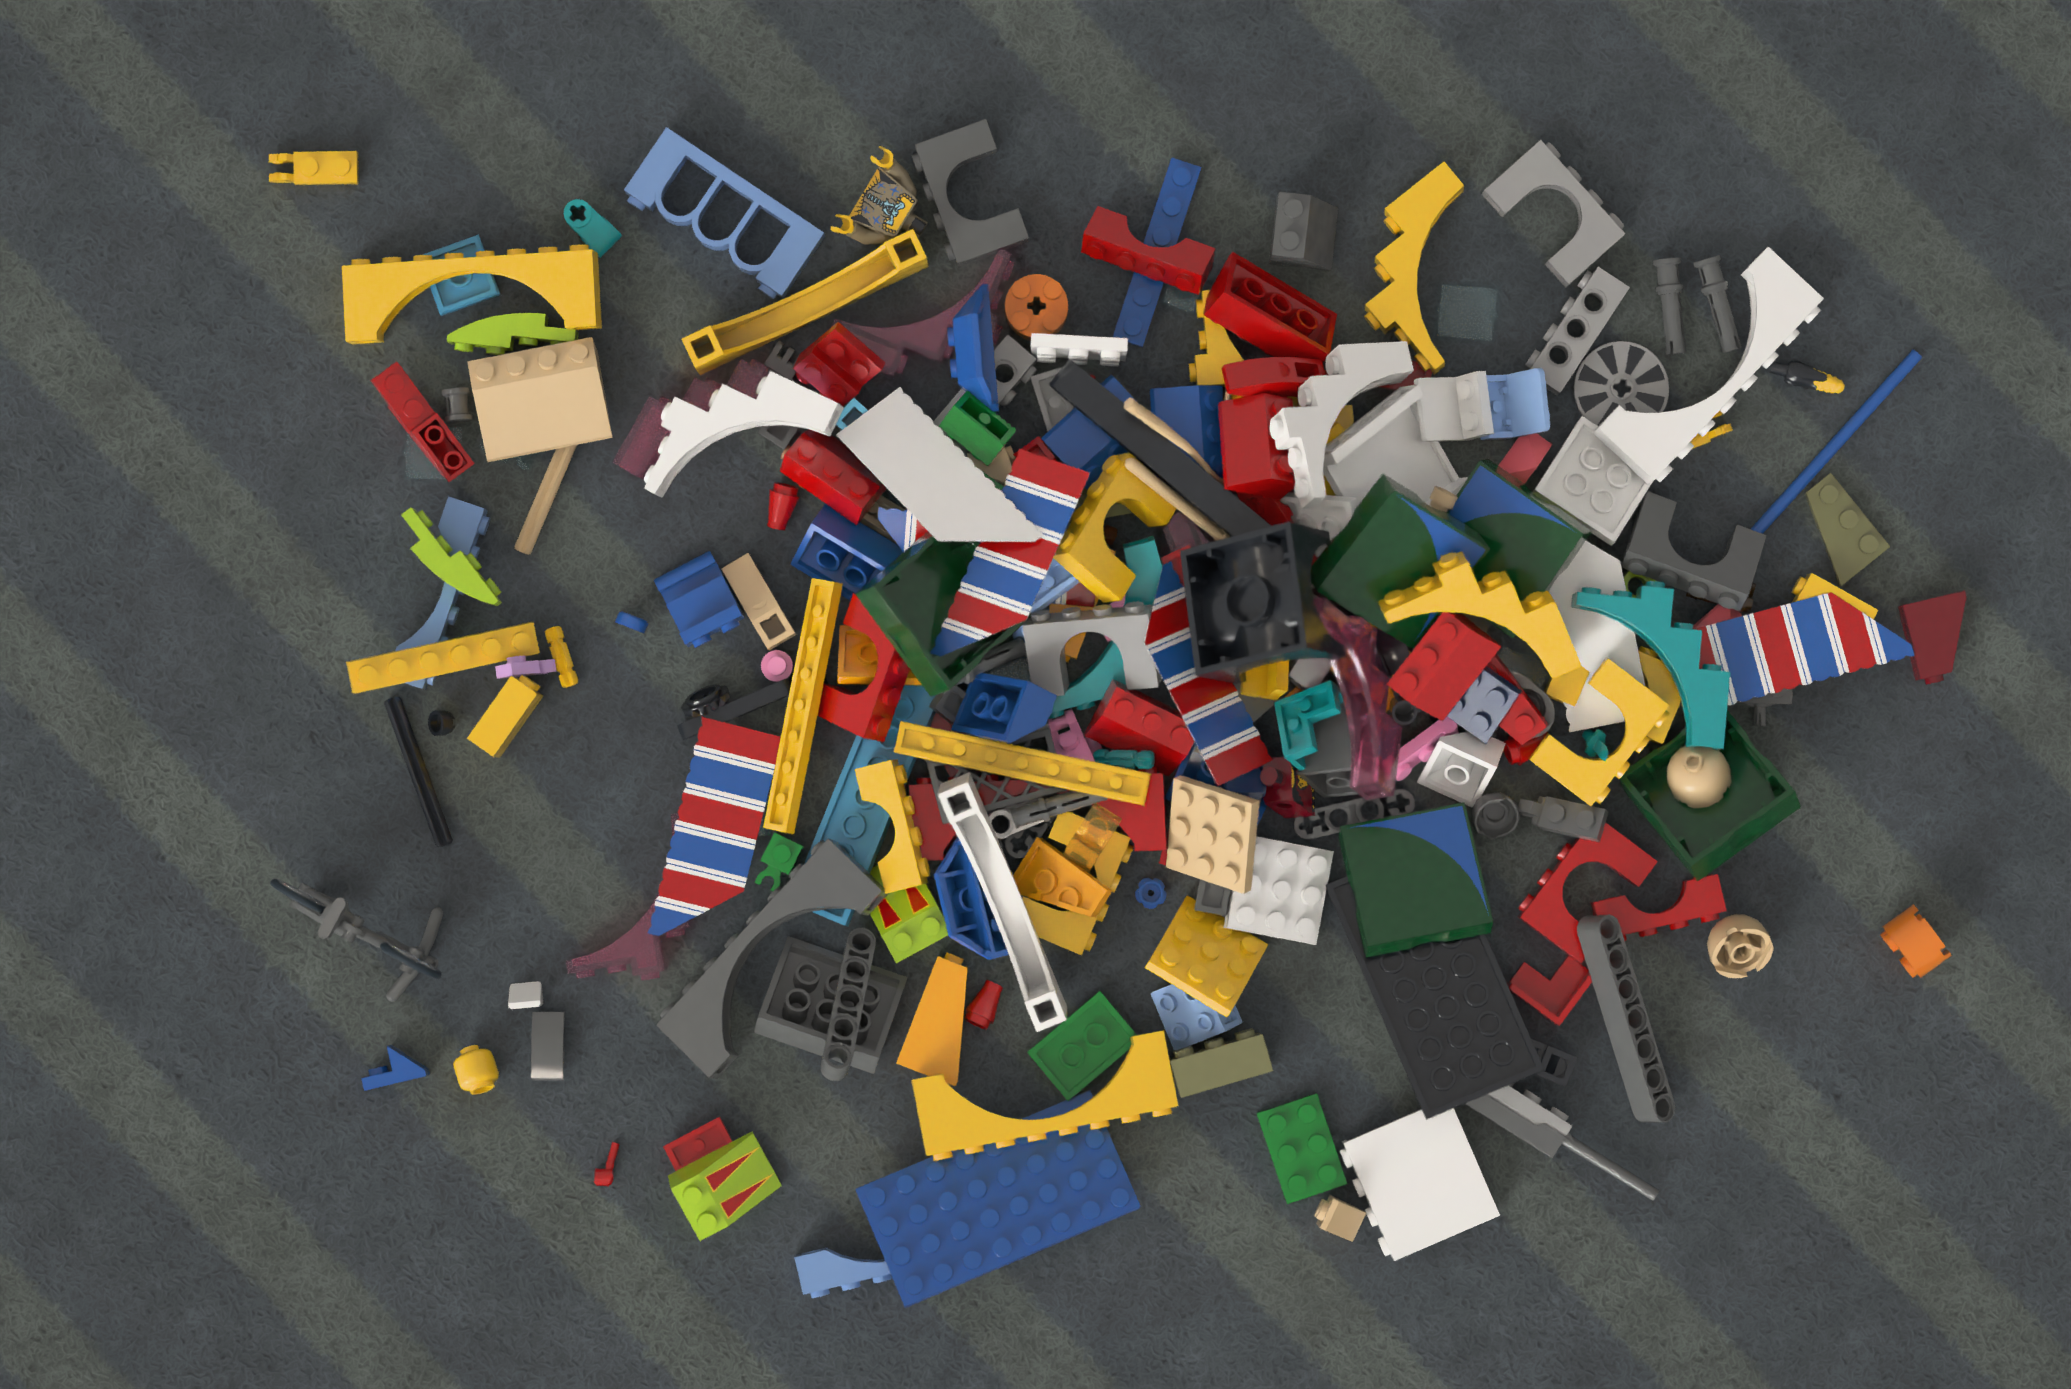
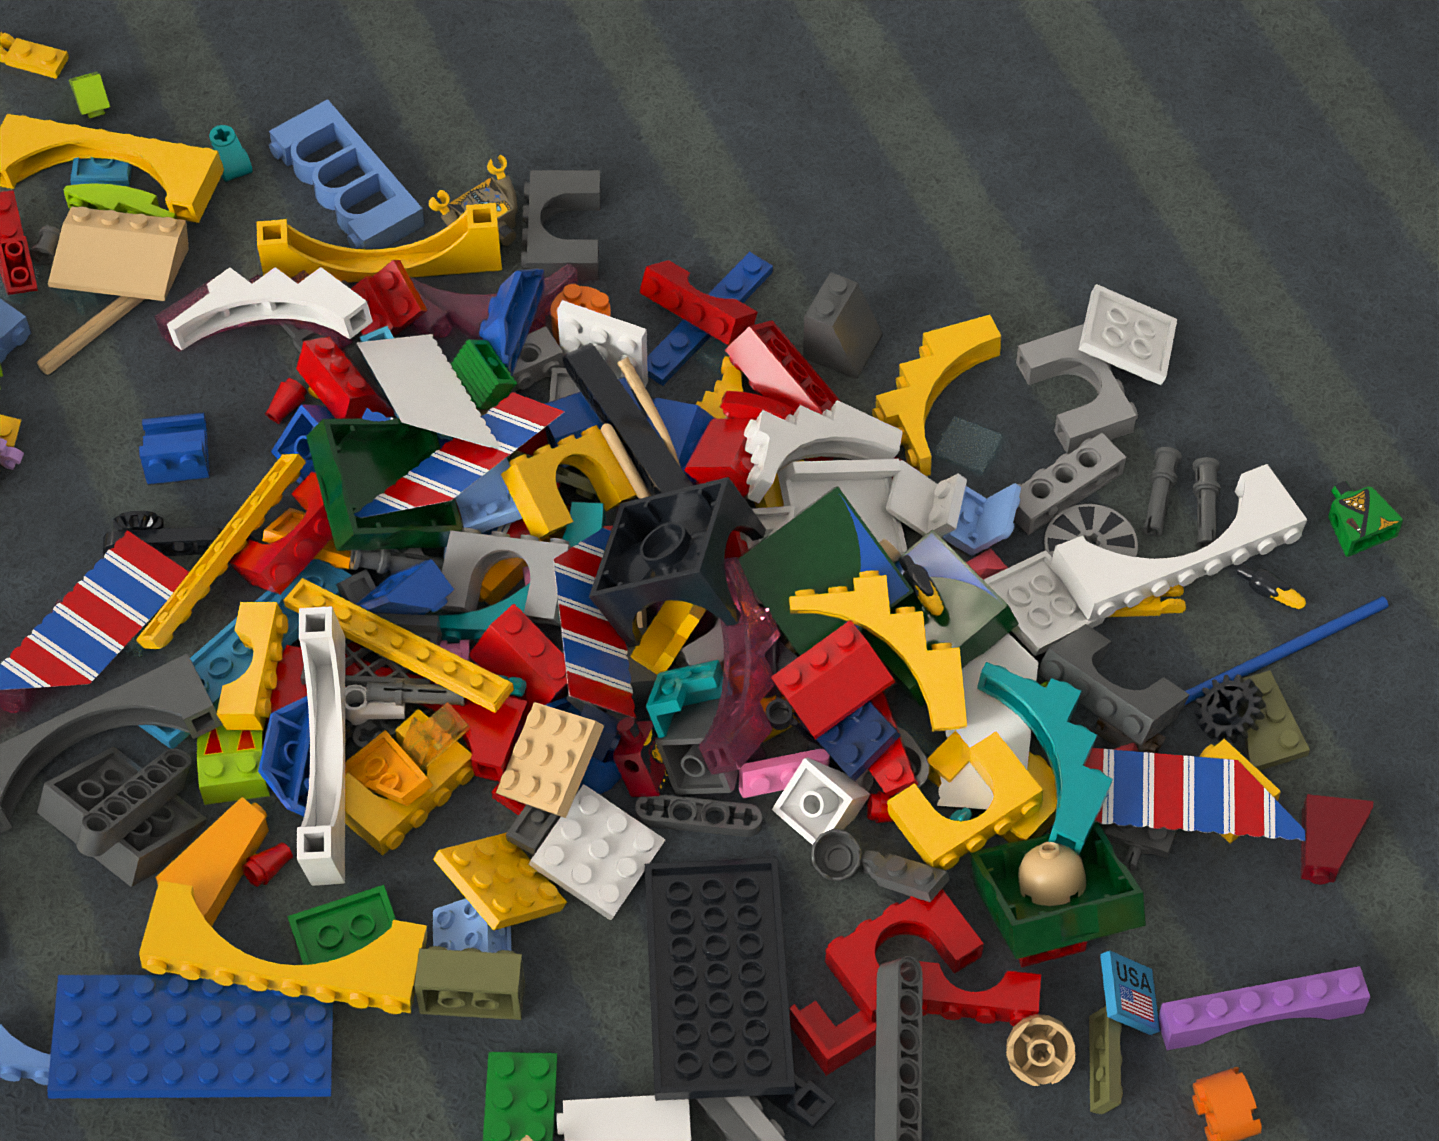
camera: 20 degrees right, 30 degrees down
(406, 197) = (90, 94): none -> lime slope
(562, 656) = (31, 457): yellow axle -> none
(631, 622) = (106, 446): blue tile -> none
(758, 602) = (227, 469): tan slope -> none
(776, 665) = (216, 518): bright pink plate -> none
(781, 857) = (134, 664): green brick -> none
(1142, 892) = (473, 811): blue plate -> none
(1415, 879) = (733, 877): dark green tile -> none
(1492, 532) = (922, 585): none -> black piece
(1588, 136) = (1128, 334): none -> white plate
(1795, 929) = (1104, 1062): none -> olive plate
(1800, 861) = (1129, 992): none -> dark azure tile
(1816, 541) = (1245, 705): none -> black gear
(1872, 269) = (1362, 518): none -> green torso
(1920, 831) = (1313, 996): none -> medium lavender arch

